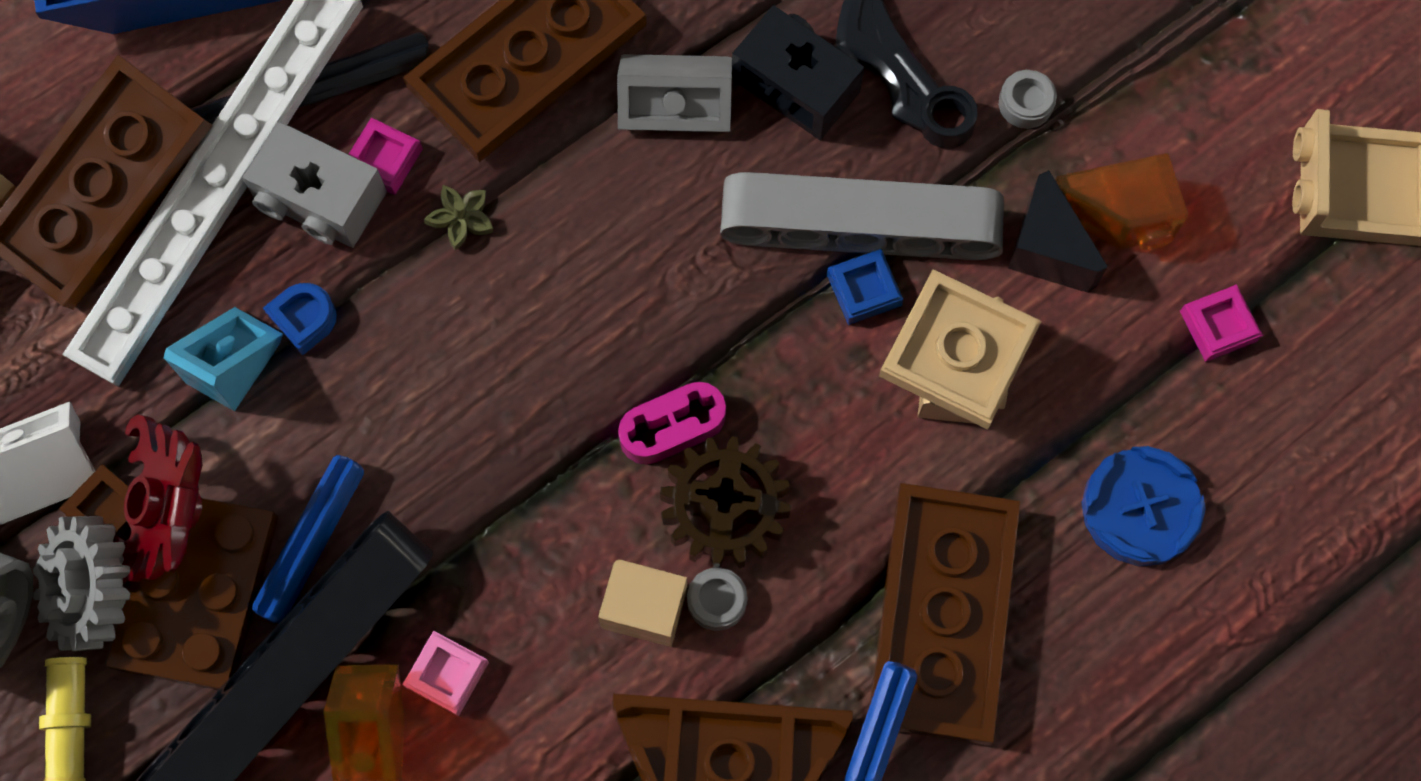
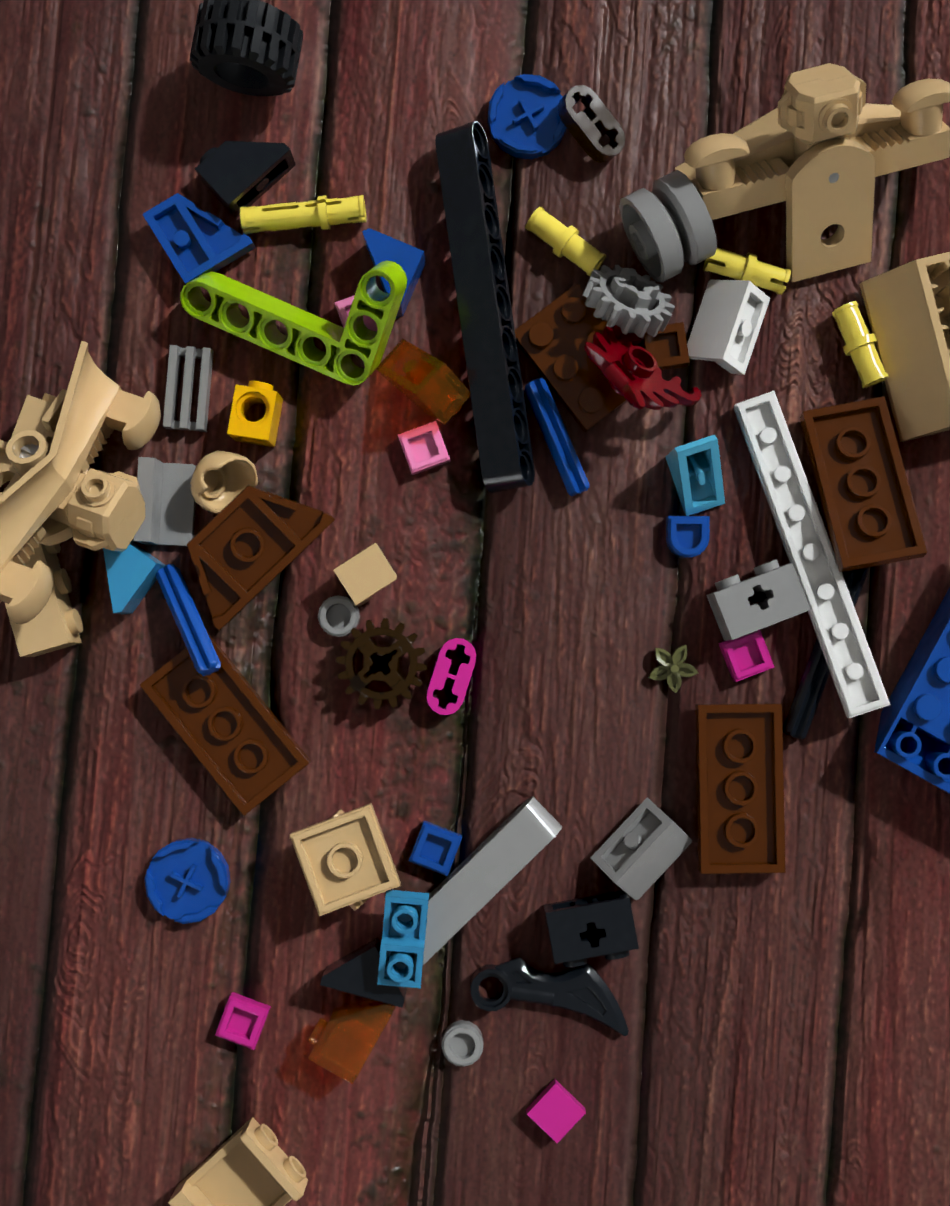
camera: 130 degrees right, 15 degrees up
(982, 223) = (403, 939): none -> dark azure slope

